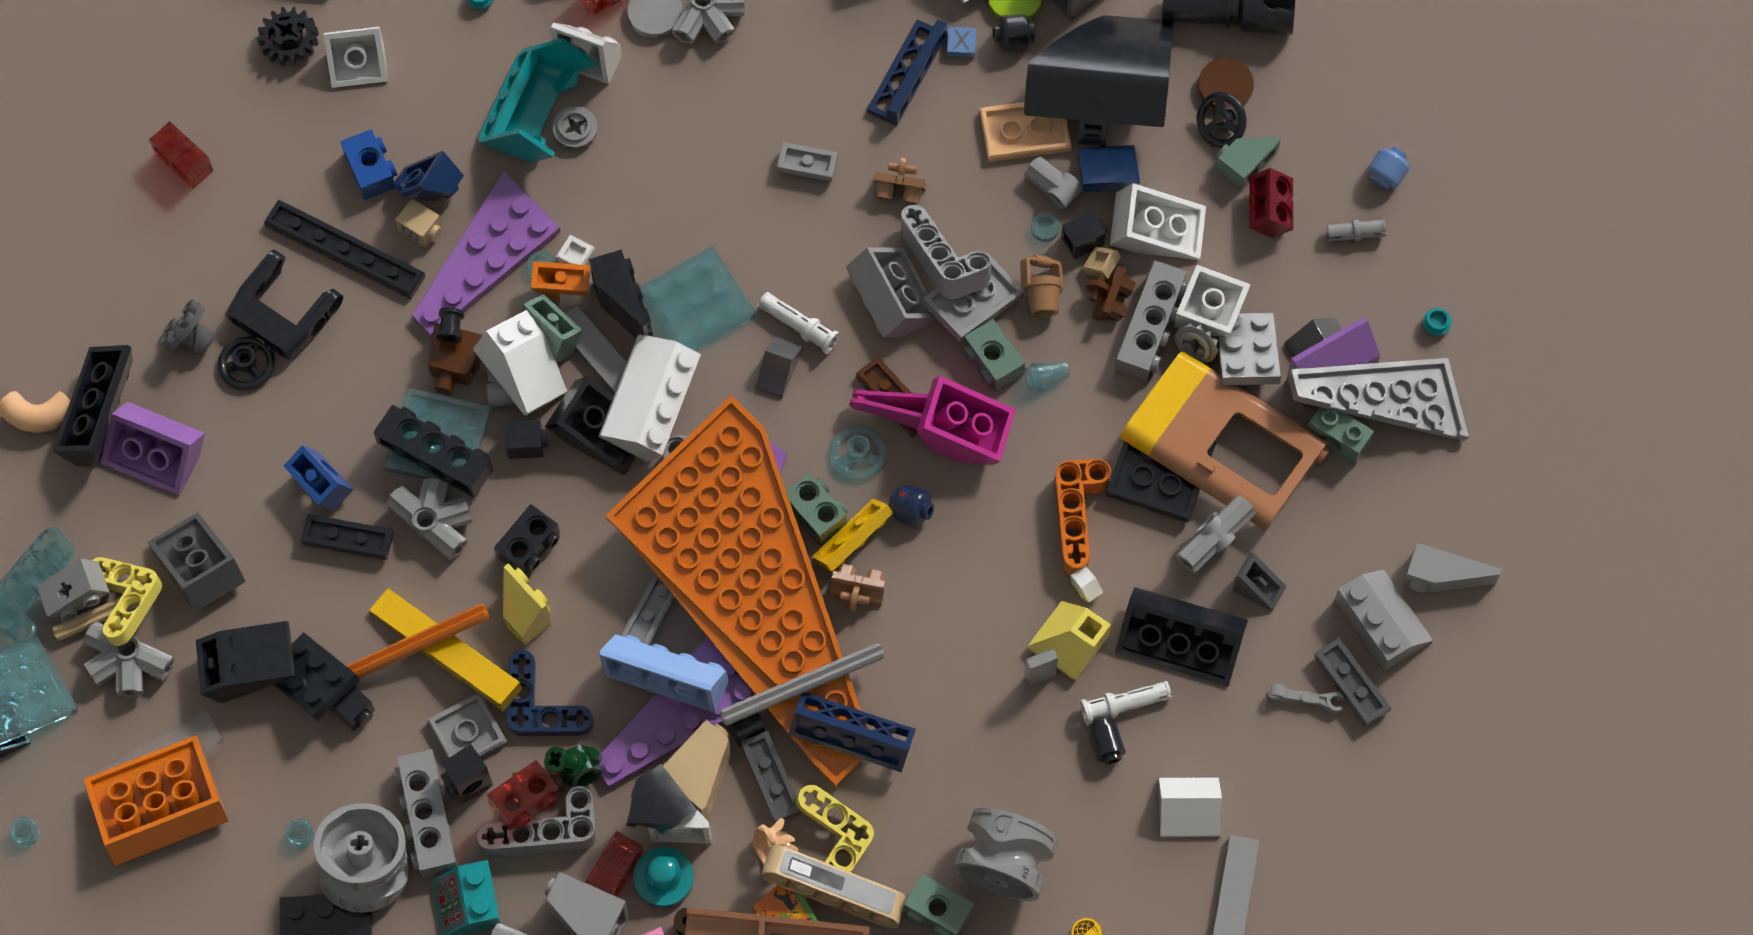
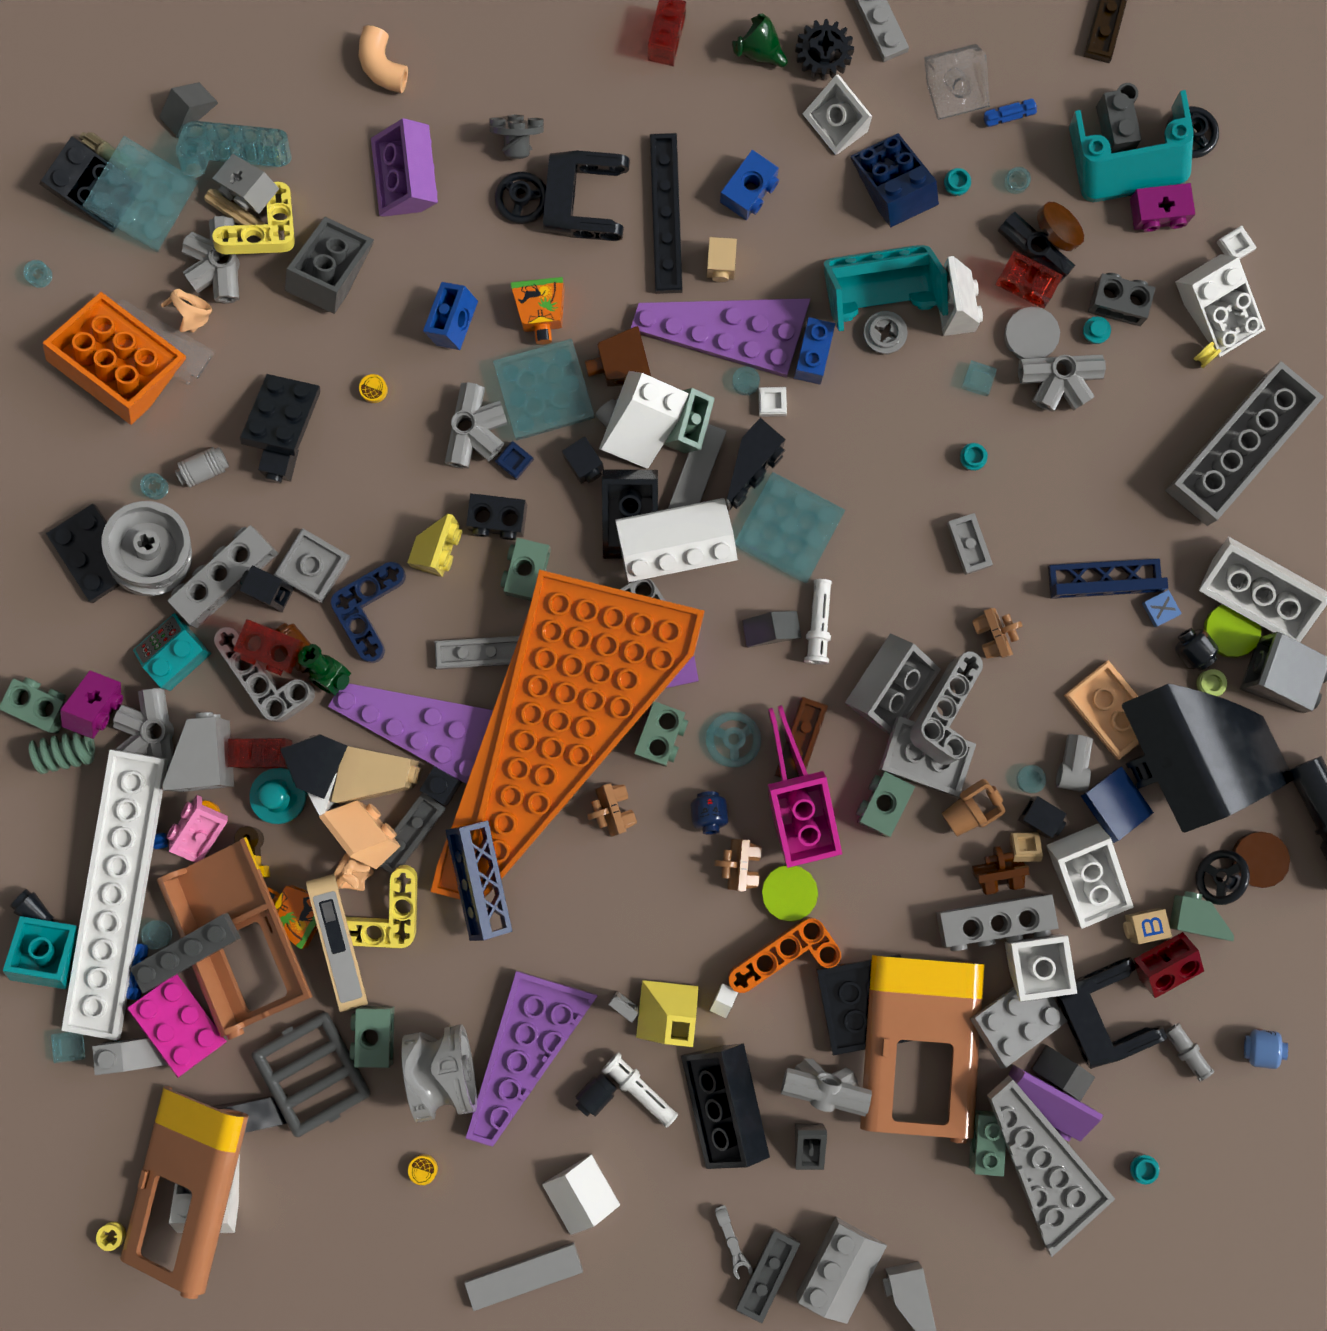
camera: 60 degrees right, 15 degrees up
(92, 404) = (409, 98): black slope -> none
(157, 700) = (193, 316): none -> light nougat piece
(244, 660) = (260, 354): black slope -> none
(245, 83) = (761, 43): none -> dark green hat
(311, 777) = (201, 467): none -> light grey head
(337, 587) = (373, 388): none -> yellow tile
(347, 536) = (418, 370): black plate -> none
(357, 399) = (540, 306): none -> orange torso
(419, 641) = (355, 481): orange axle -> none
(429, 178) = (762, 241): dark blue slope -> none
(445, 43) = (896, 180): none -> dark blue slope
(450, 325) = (638, 339): black bush -> none
(450, 653) = (367, 508): yellow slope -> none
(466, 478) = (522, 350): black brick -> none
(486, 502) = (514, 460): none -> dark blue tile
(554, 192) = (814, 350): none -> blue brick
(559, 279) = (736, 403): orange slope -> none
(588, 526) = (524, 552): none -> sand green brick
(664, 672) = (440, 696): light blue slope -> none
(666, 74) = (979, 378): none -> clear light blue tile
(732, 117) = (973, 456): none -> teal plate
(746, 809) = (361, 833): none -> light nougat slope
(801, 684) = (491, 817): light grey axle -> none
(852, 535) = (655, 778): yellow plate -> none
(972, 507) = (736, 865): none -> medium nougat hips
(1022, 774) = (530, 1035): none -> medium lavender wing
(1024, 479) = (789, 893): none -> lime tile
(1045, 374) = (894, 857): clear light blue cone -> none
(1048, 35) = (1212, 682): none -> yellowish green tile
(1186, 342) = (994, 963): light grey gear -> none
(1228, 202) = (1147, 926): none -> tan brick
(1286, 297) = (1088, 1026): none -> black connector

